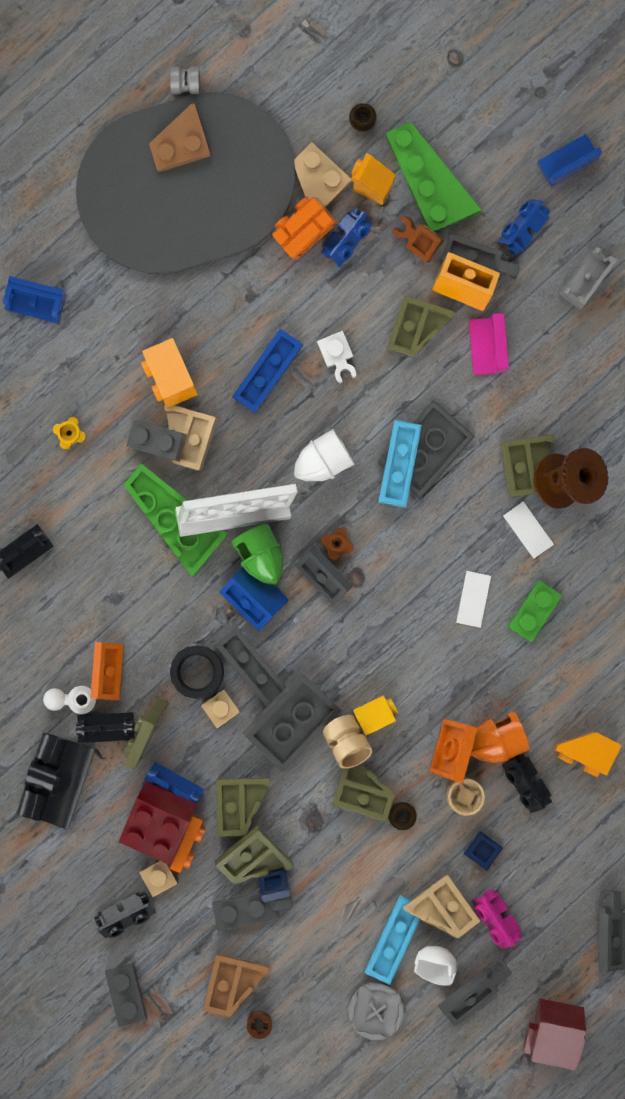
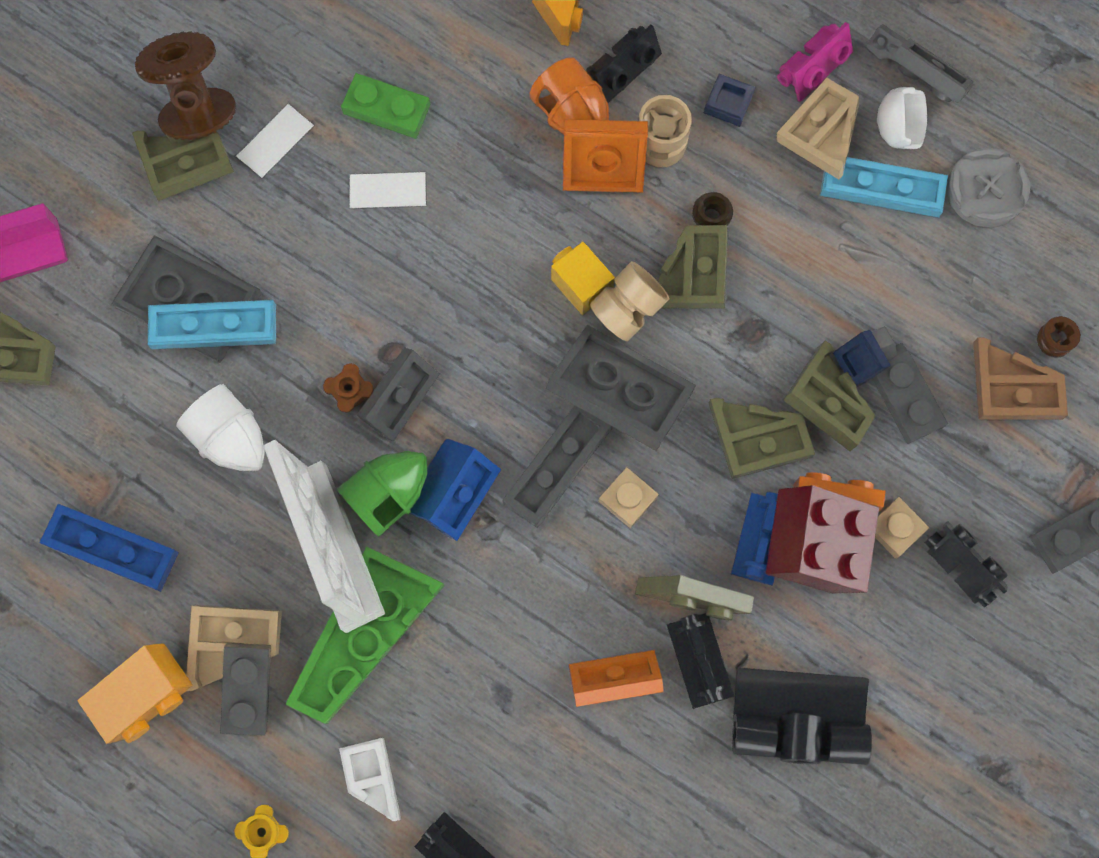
camera: 105 degrees left, 10 degrees down
(55, 699) = (677, 747): white plate -> none
(86, 505) = (370, 776): none -> white tile
(176, 675) = (593, 512): black tyre -> none
(337, 352) = (66, 456): white plate -> none

